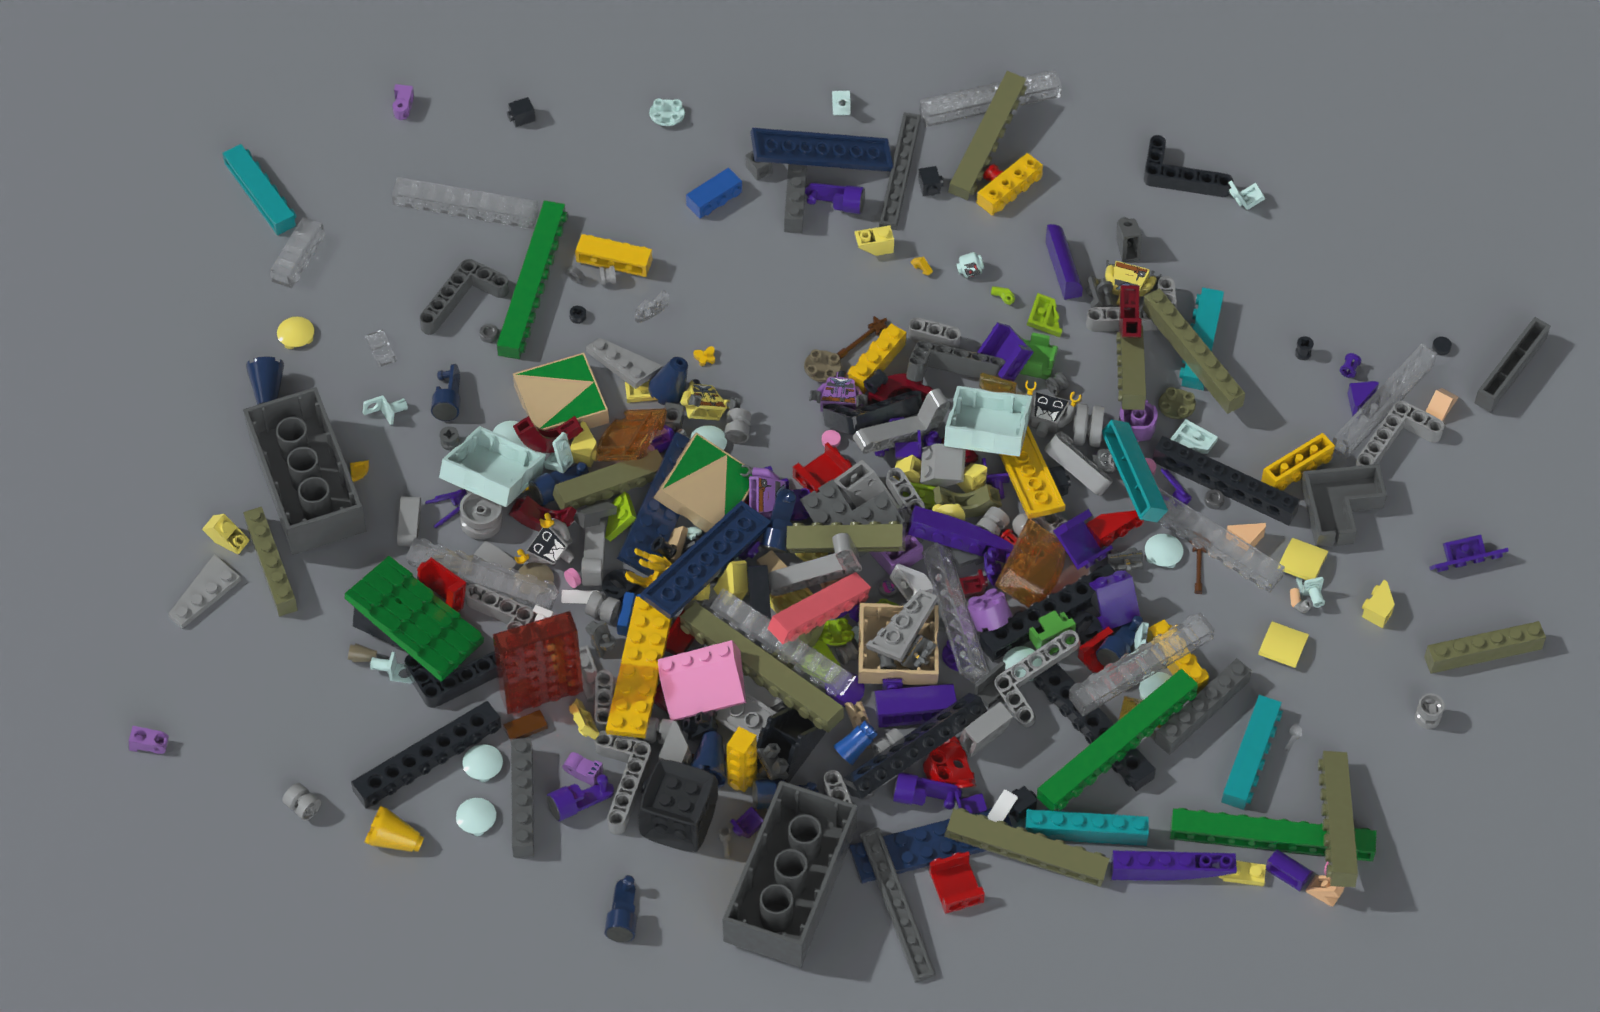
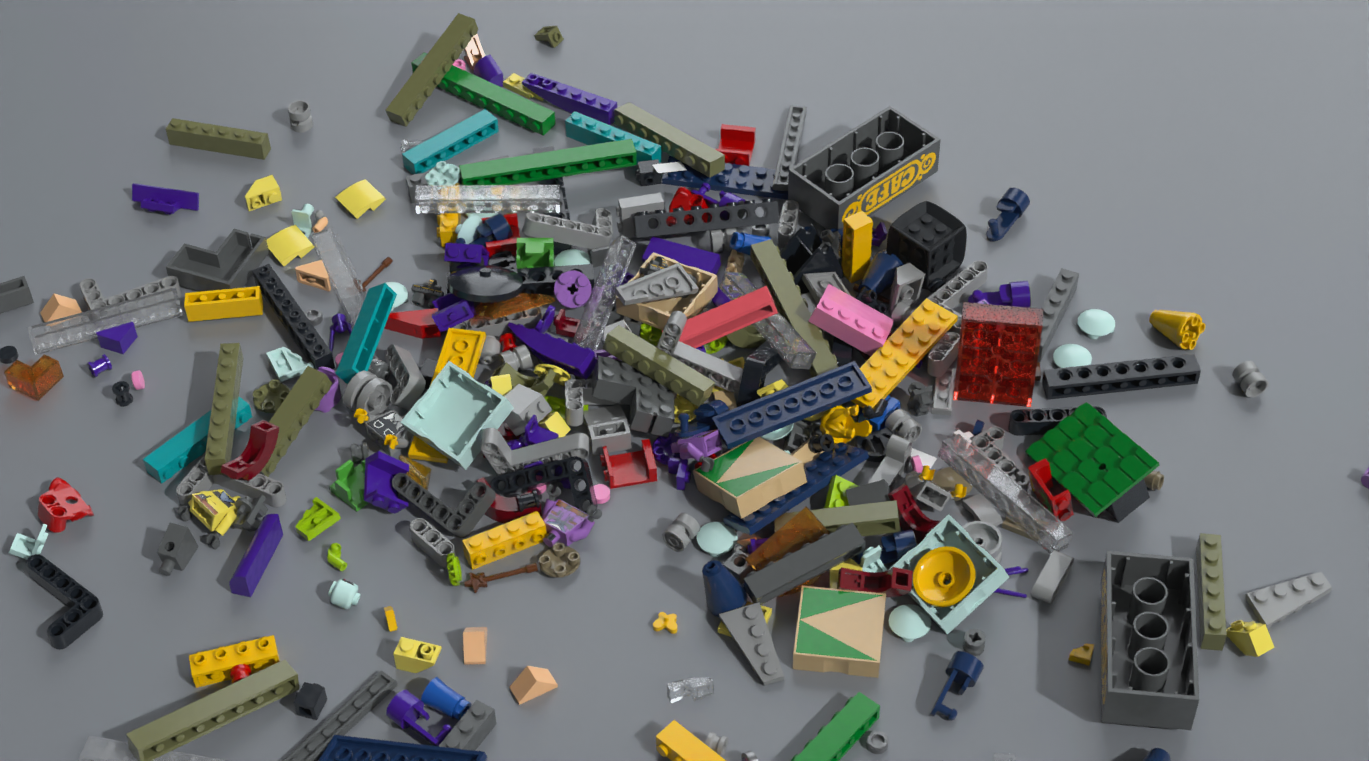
camera: 150 degrees left, 10 degrees down
(387, 409) = (1024, 697): light aqua bracket -> none
(492, 455) = (937, 568): none -> yellow dish
(576, 318) = (771, 727): black bush -> none
(613, 422) = (804, 564): none -> dark grey brick
(629, 598) = (878, 411): none -> black arm
(705, 402) = (693, 558): torso -> none
(773, 265) = (532, 683): none -> light nougat slope
(829, 221) = (445, 699): none -> blue plant
(843, 277) = (475, 645): none -> light nougat slope
(898, 314) = (454, 569): none -> lime gear
(973, 804) = (687, 184): dark purple bracket -> none
(1066, 562) = (485, 283): none -> black dish
(1208, 673) = (443, 175): none -> light aqua dish
(1264, 244) = (54, 509): none -> red piece
(1269, 957) = (550, 34): none -> olive bracket
(1304, 366) = (138, 380): none -> bright pink tile
(1389, 321) = (34, 379): none -> clear orange brick

